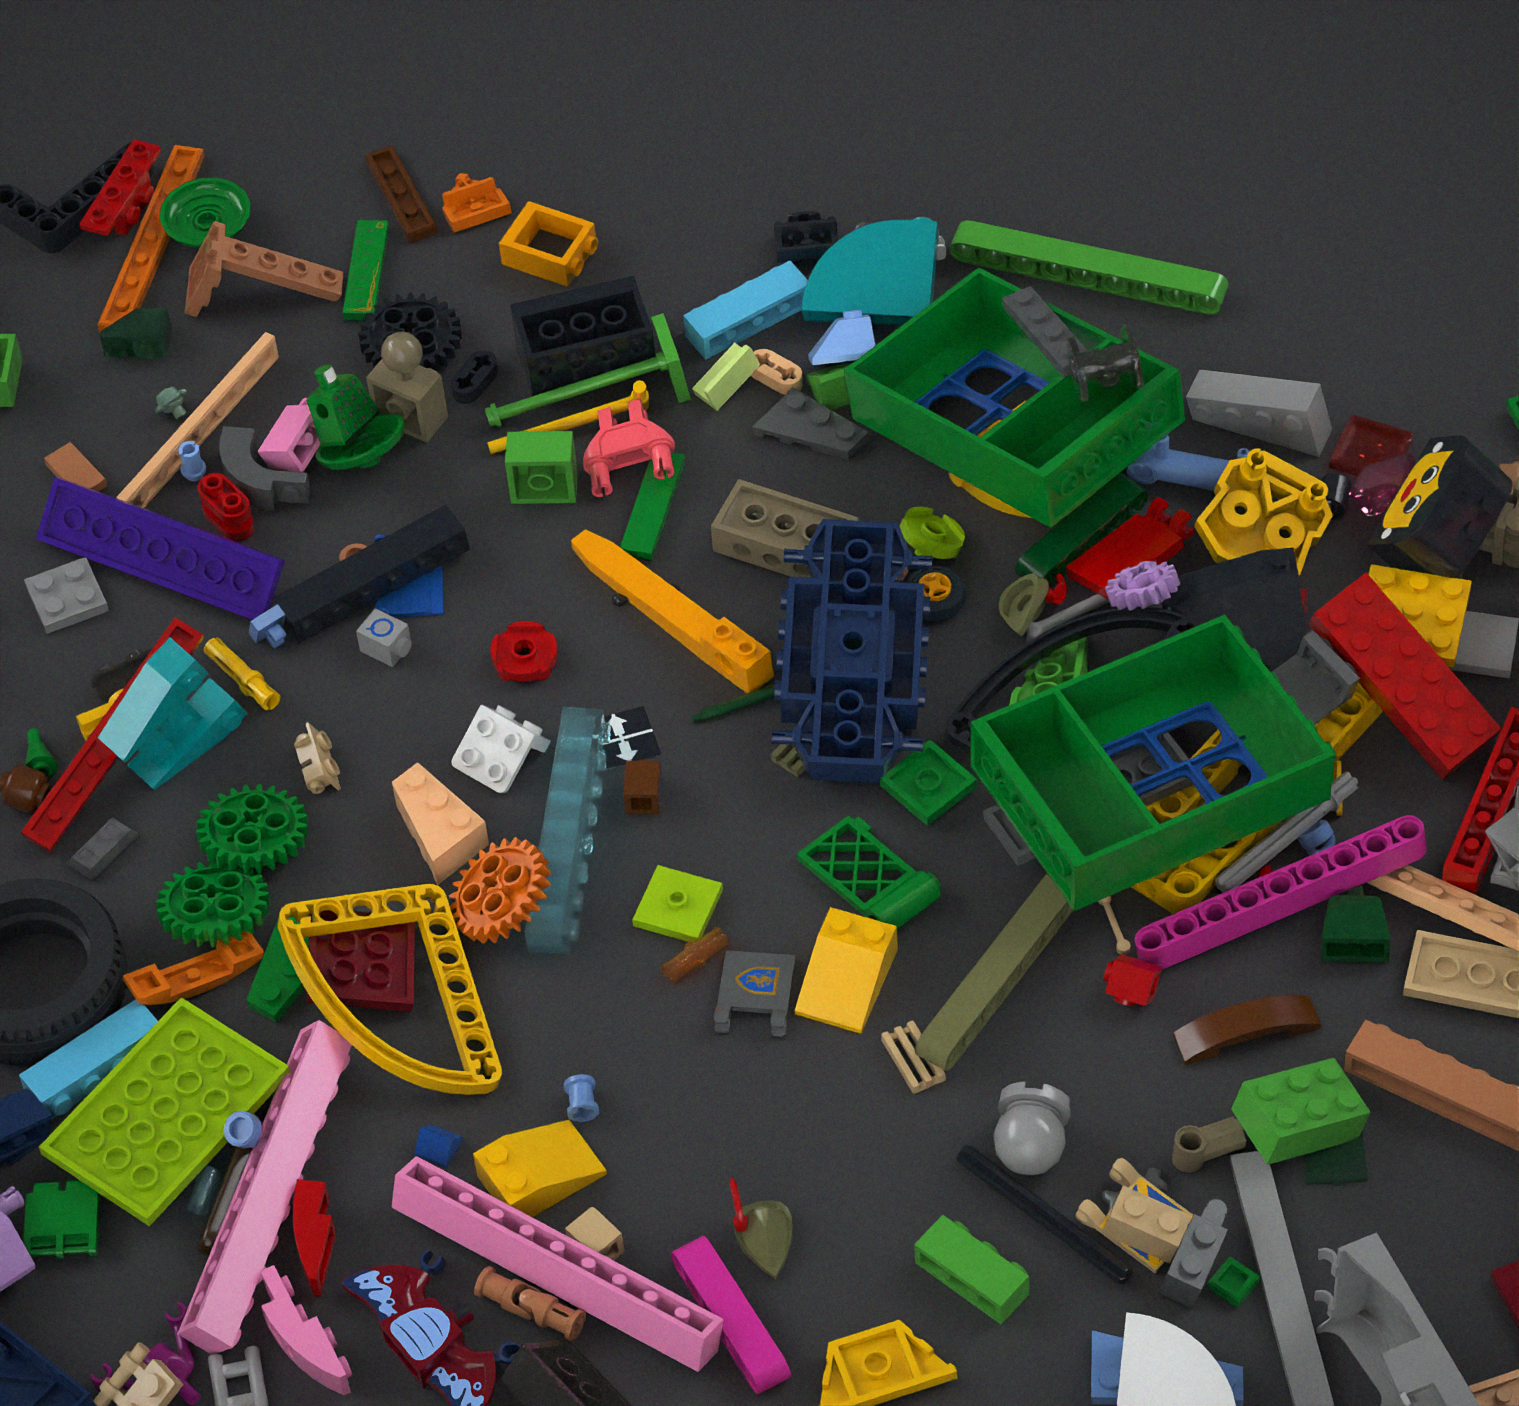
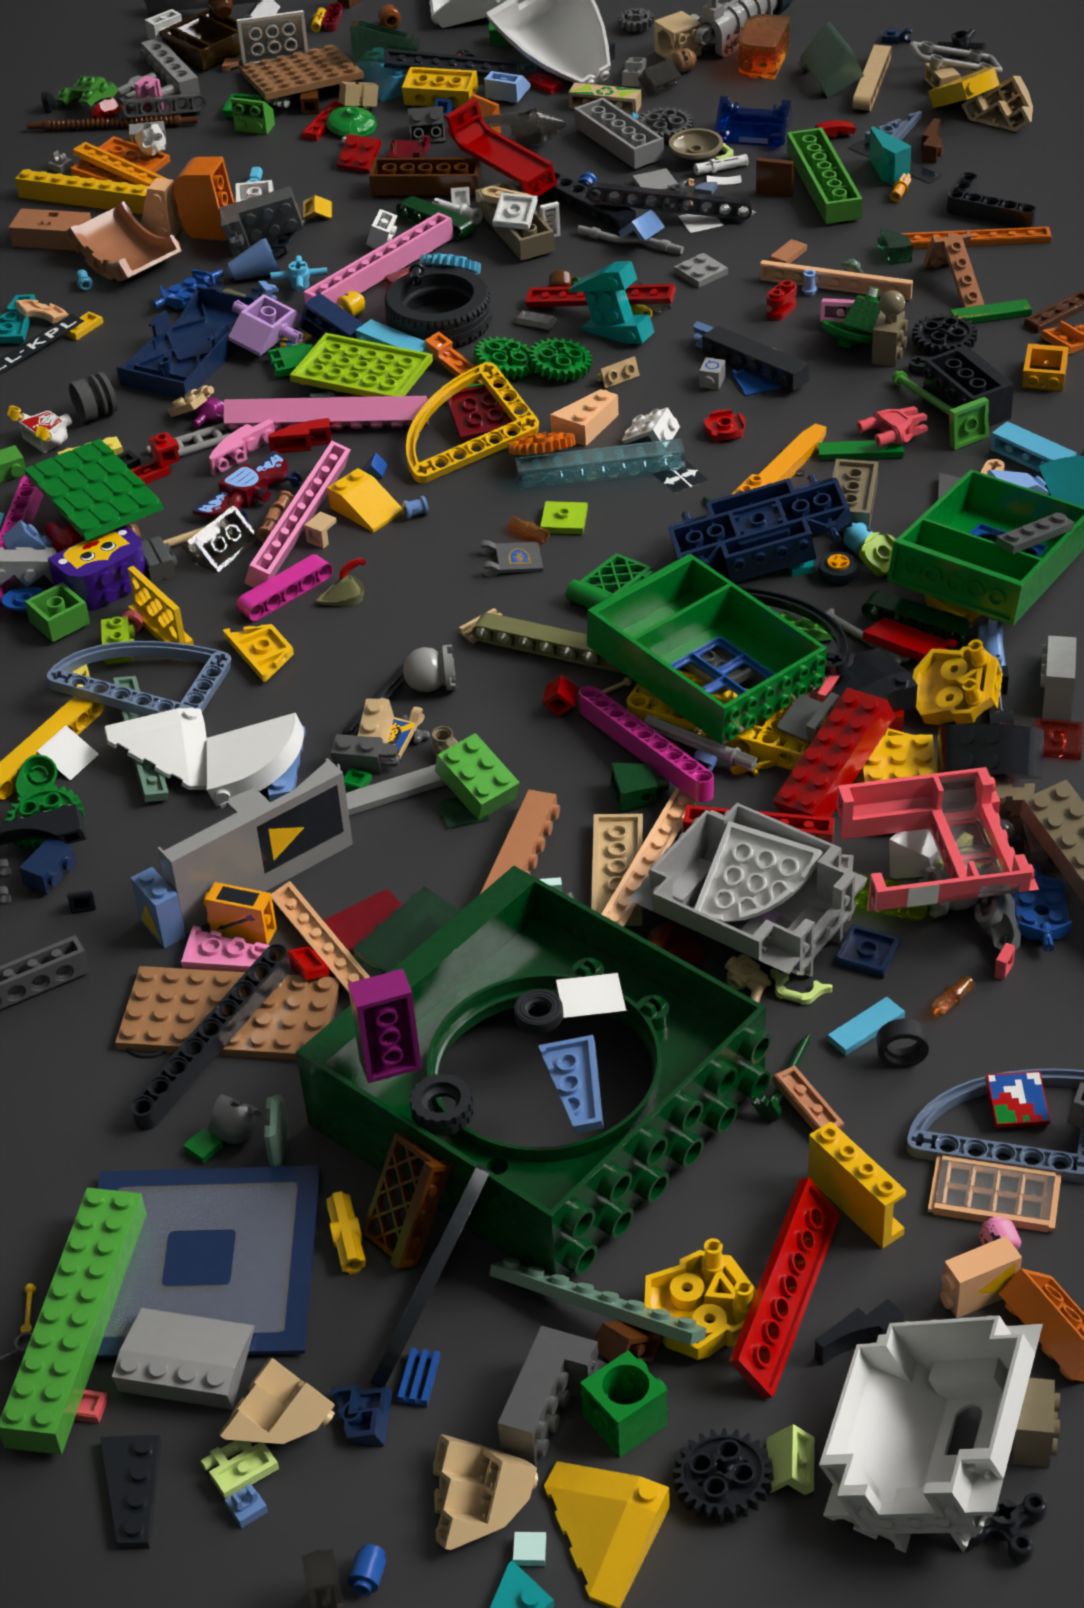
camera: 75 degrees right, 10 degrees down
(124, 192) = (993, 214): red bracket -> none
(159, 549) = (739, 283): dark purple plate -> none
(198, 203) = (996, 243): green hat -> none
(243, 1129) = (350, 387): medium blue tile -> none
(250, 681) = (664, 337): yellow pin -> none
(261, 485) = (809, 303): dark grey arch -> none
(541, 467) = (858, 393): bright green brick -> none
(585, 417) = (932, 418): yellow bar -> none
(642, 787) = (641, 484): reddish brown brick -> none
(726, 376) = (970, 451): yellowish green panel -> none
(847, 970) = (535, 585): yellow slope -> none
(972, 1268) = (334, 670): bright green brick -> none
(1026, 599) = (847, 605): olive piece -> none
(1106, 364) = (990, 536): clear smoke hose -> none
(1142, 585) = (863, 633): lavender gear -> none
(1244, 1022) = (550, 755): reddish brown slope -> none

